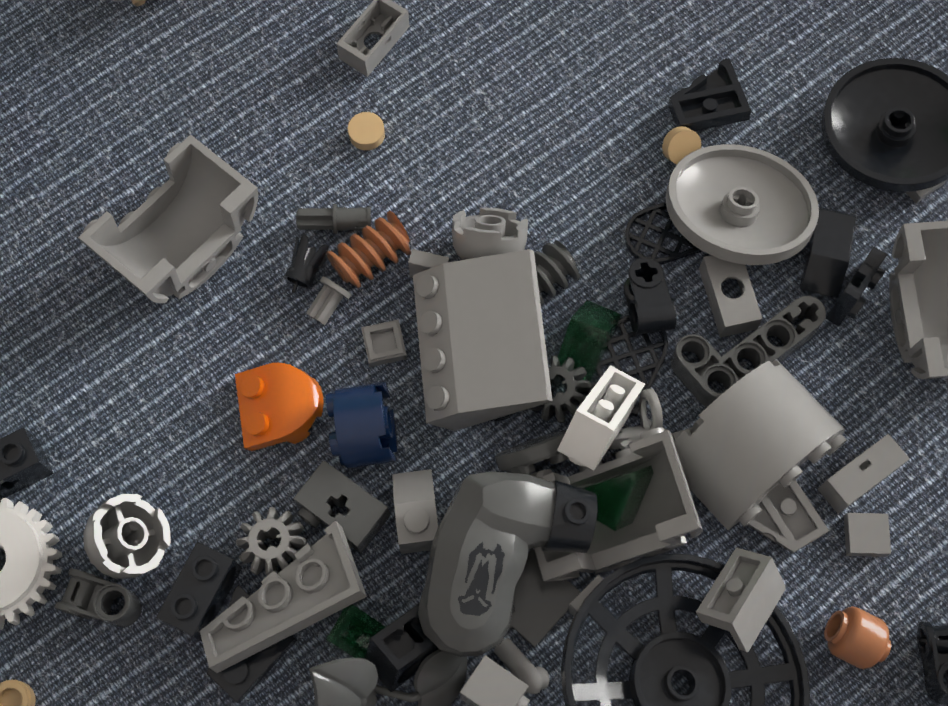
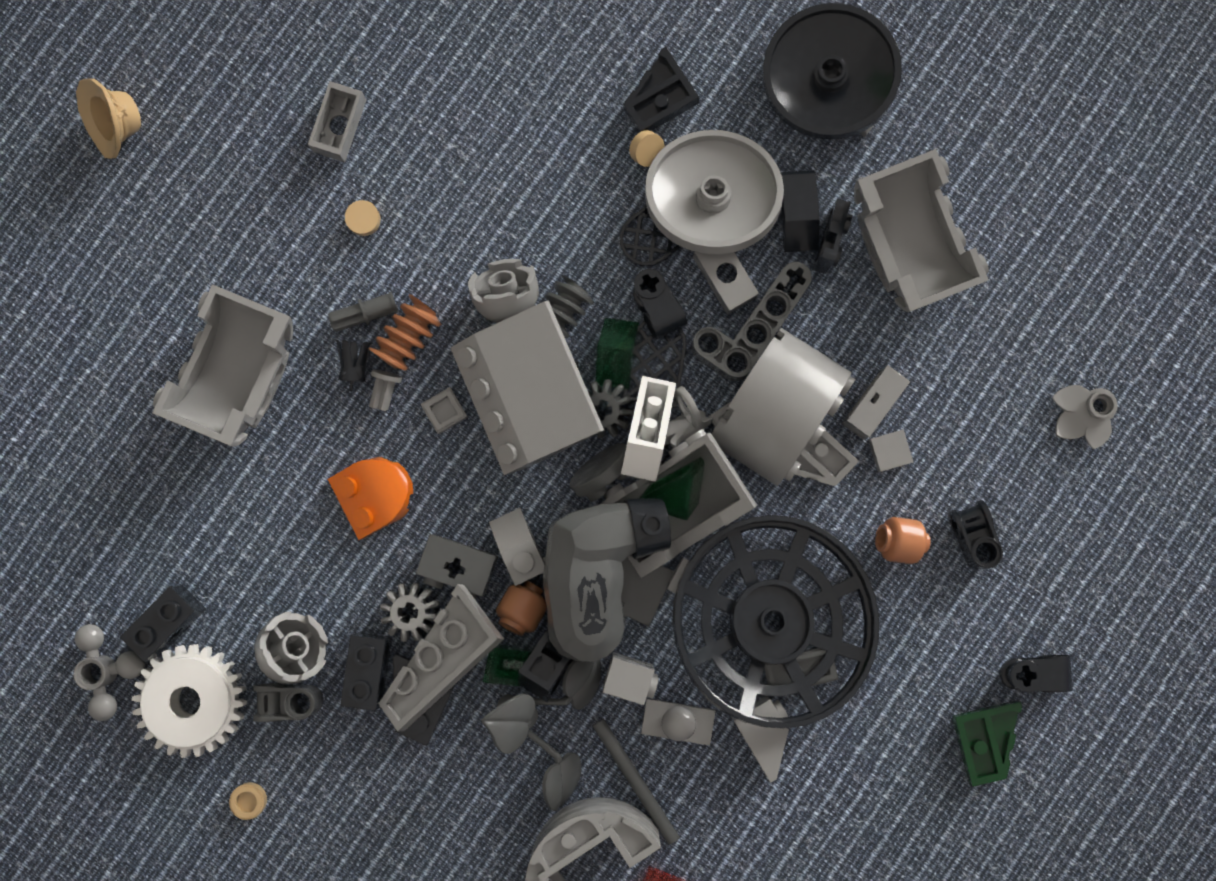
camera: 15 degrees left, 15 degrees up
(363, 426) = (451, 494): dark blue brick -> none
(396, 577) = (521, 608): none -> nougat head
(421, 261) = (458, 331): light grey tile -> none
(521, 667) = (651, 653): light grey arm -> none
(743, 596) = (803, 539): light grey panel -> none

